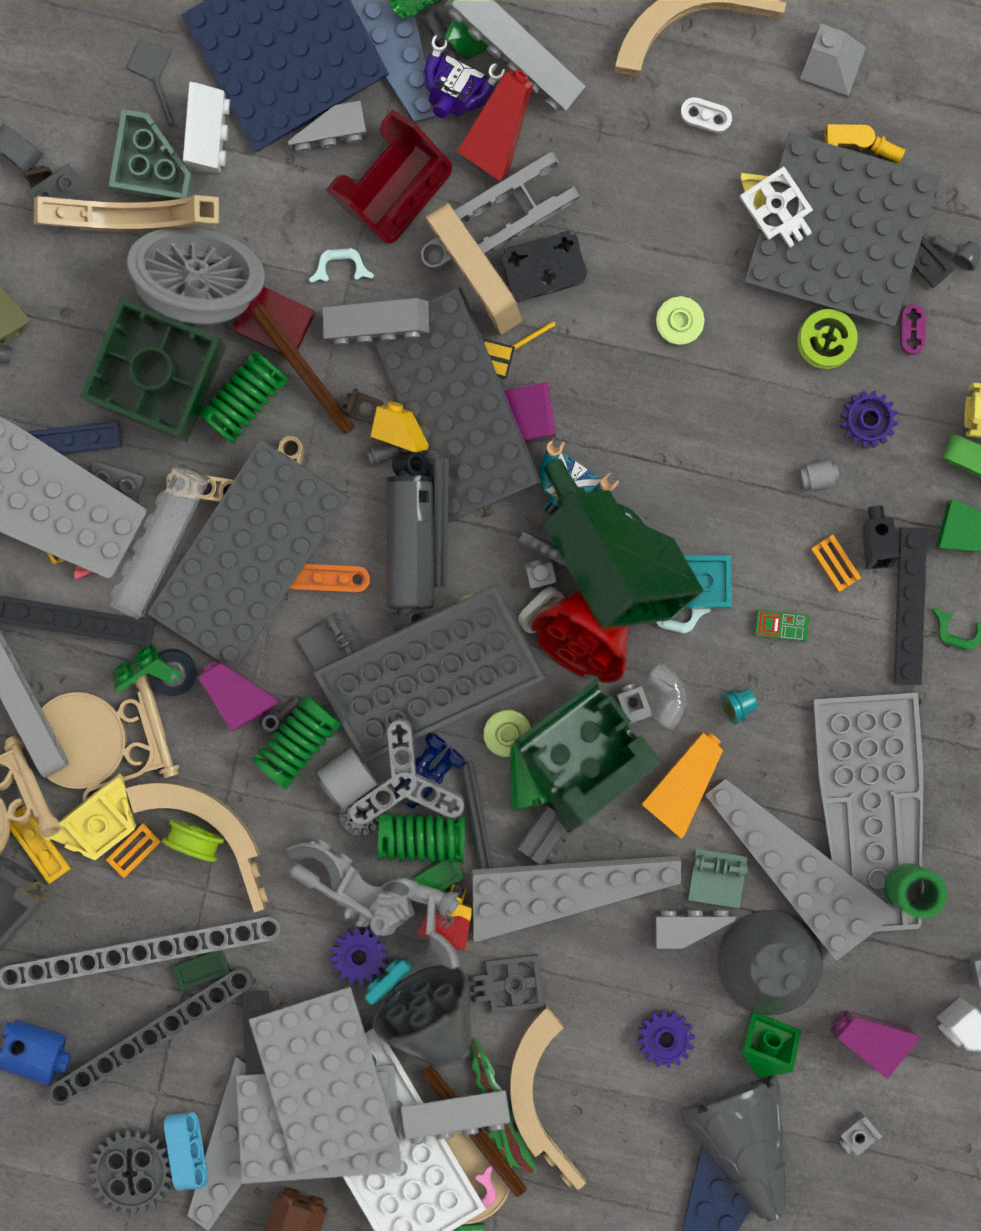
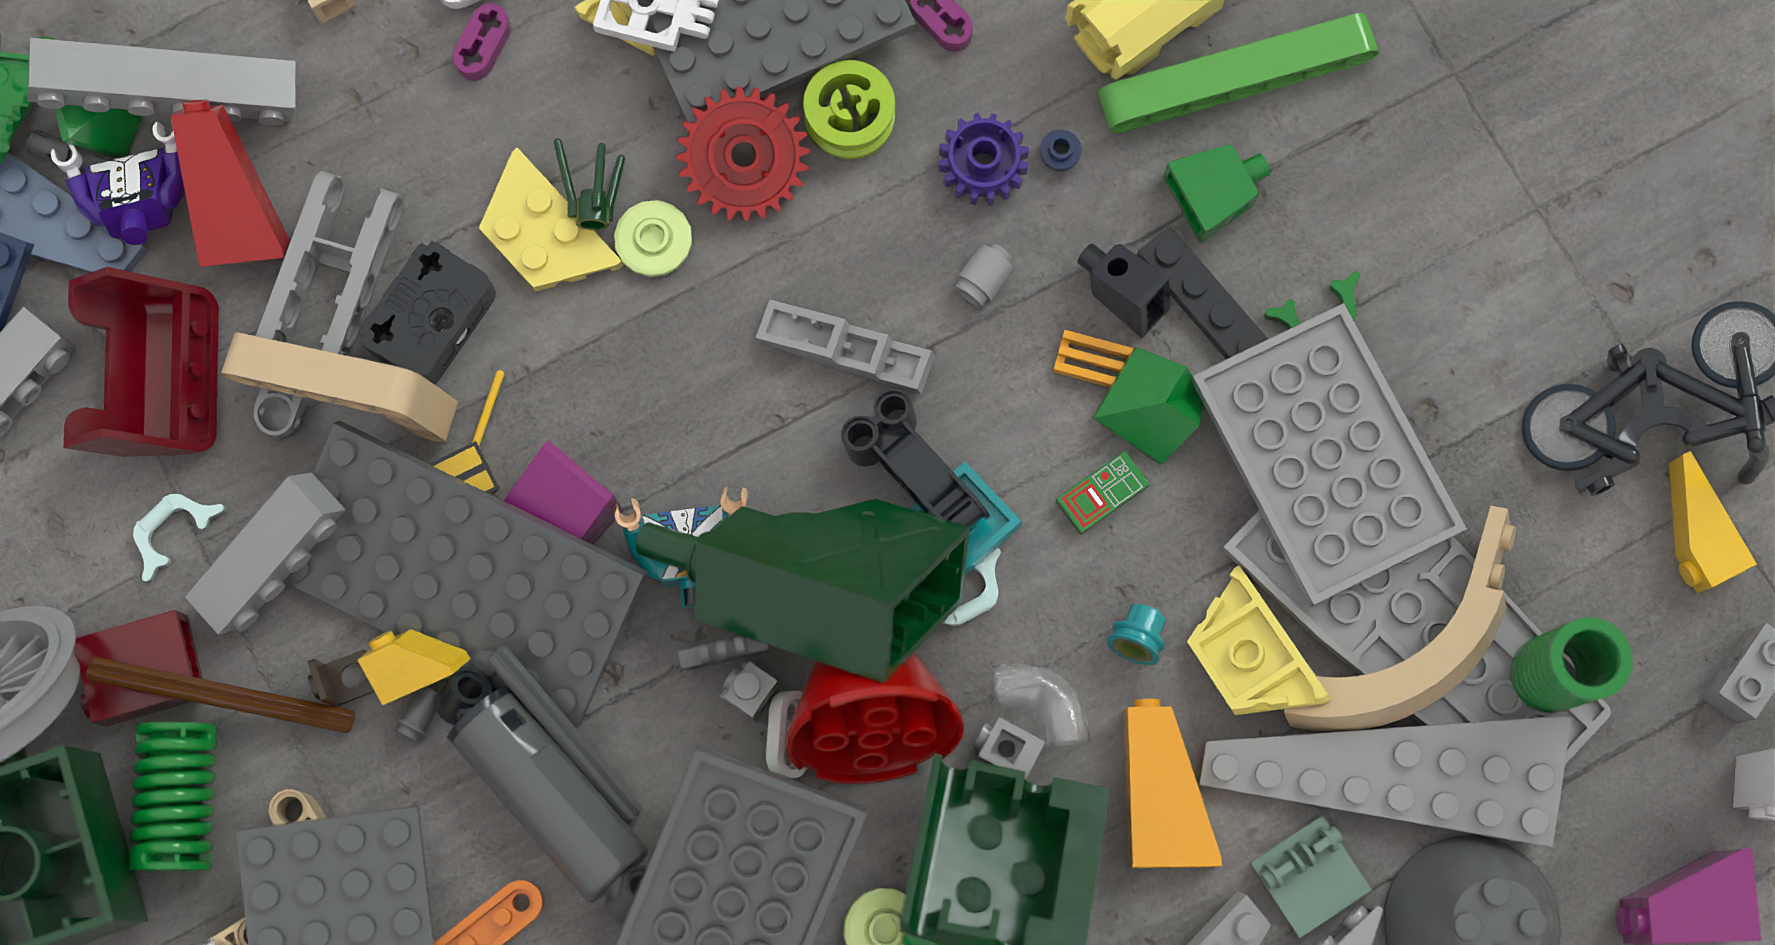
camera: 40 degrees left, 10 degrees down
(631, 270) = (534, 233): none -> light yellow wing
(665, 282) = (593, 208): none -> dark green plant
(680, 144) = (474, 37): none -> magenta beam
(705, 535) = (911, 460): none -> black piece
(724, 452) = (845, 346): none -> light grey slope
(761, 299) = (773, 160): none -> red gear
(781, 758) = (1252, 654): none -> light yellow wing
(840, 605) = (1151, 405): none -> green slope
(853, 838) = (1438, 667): none -> tan arch
(899, 699) = (1327, 454): none -> light grey plate
(901, 446) = (1057, 161): none -> dark blue plate

